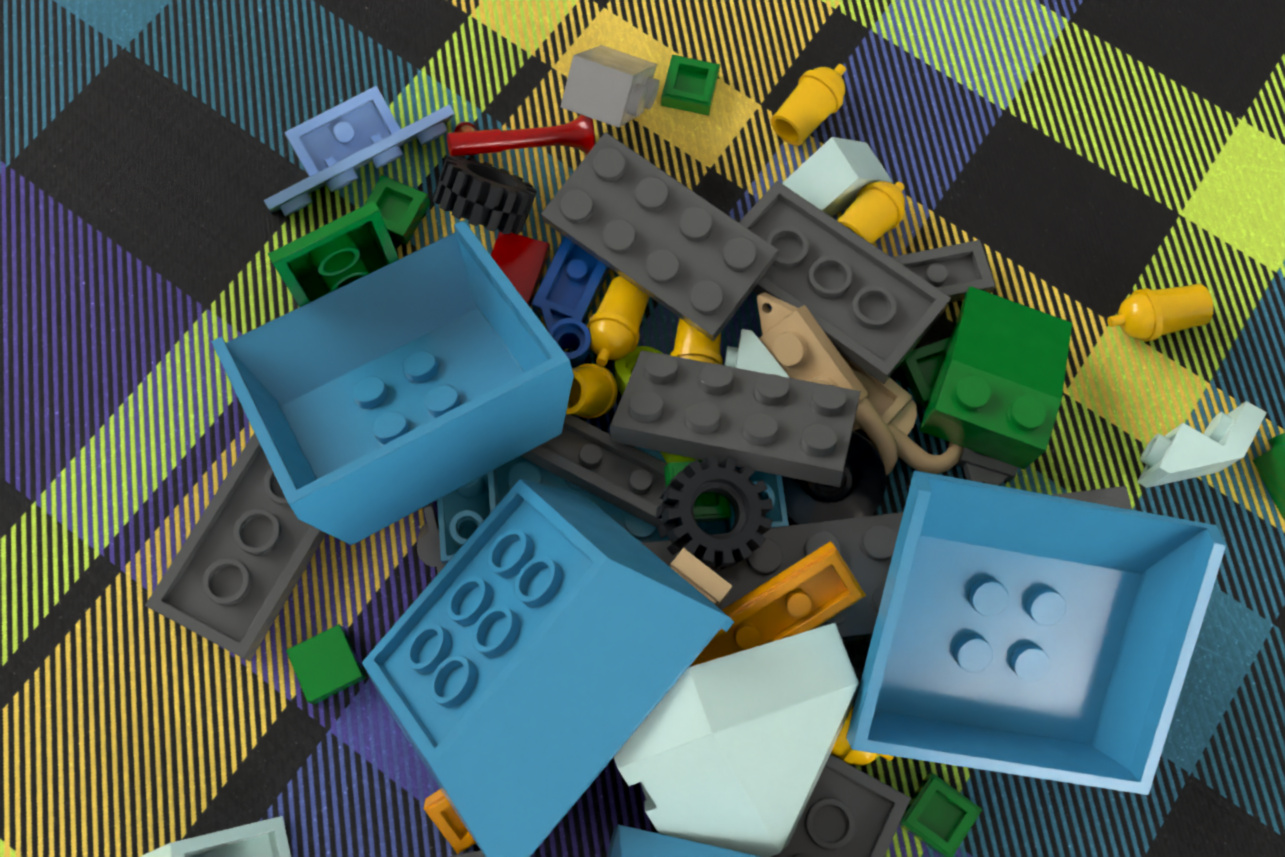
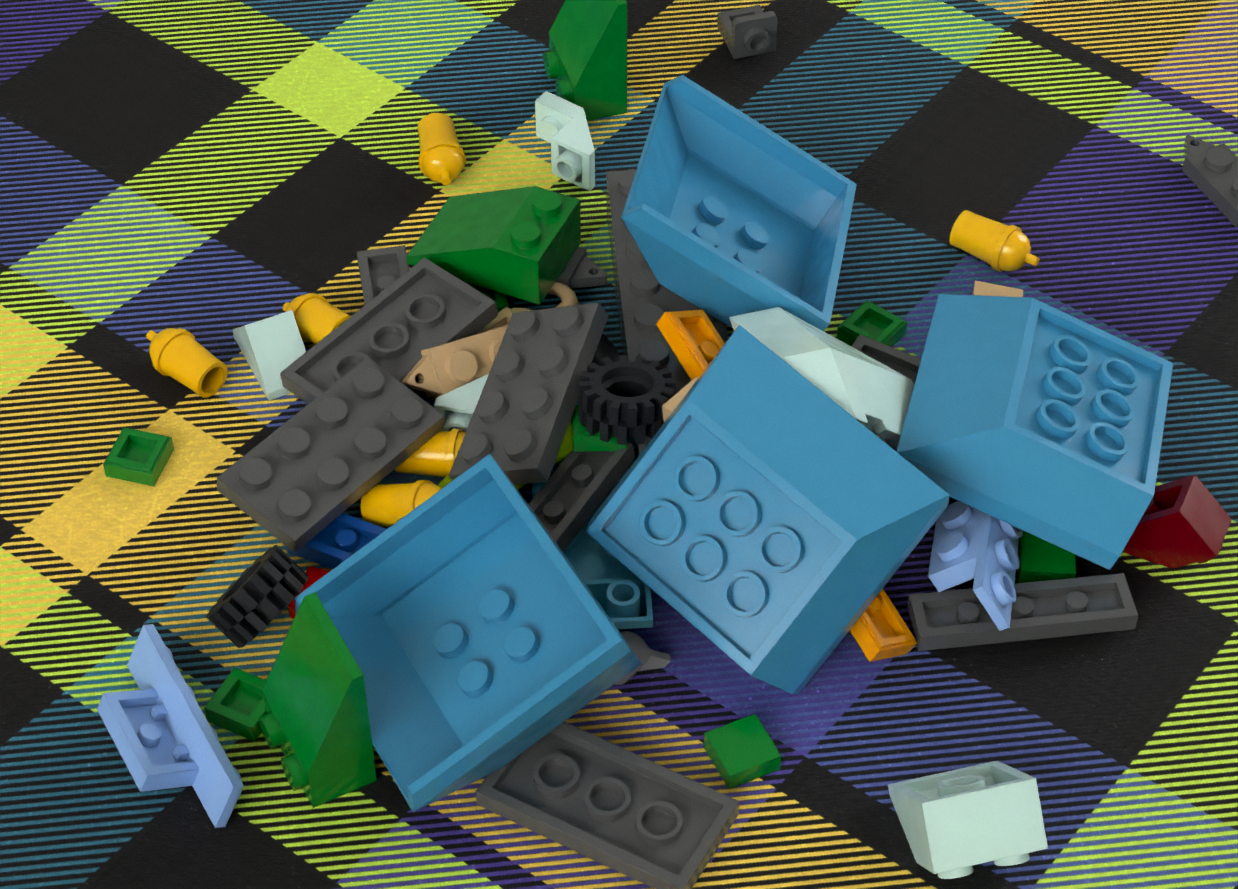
camera: 85 degrees left, 25 degrees down
(469, 141) = (188, 531): red piece -> none
(610, 85) = (150, 489): light grey brick -> none

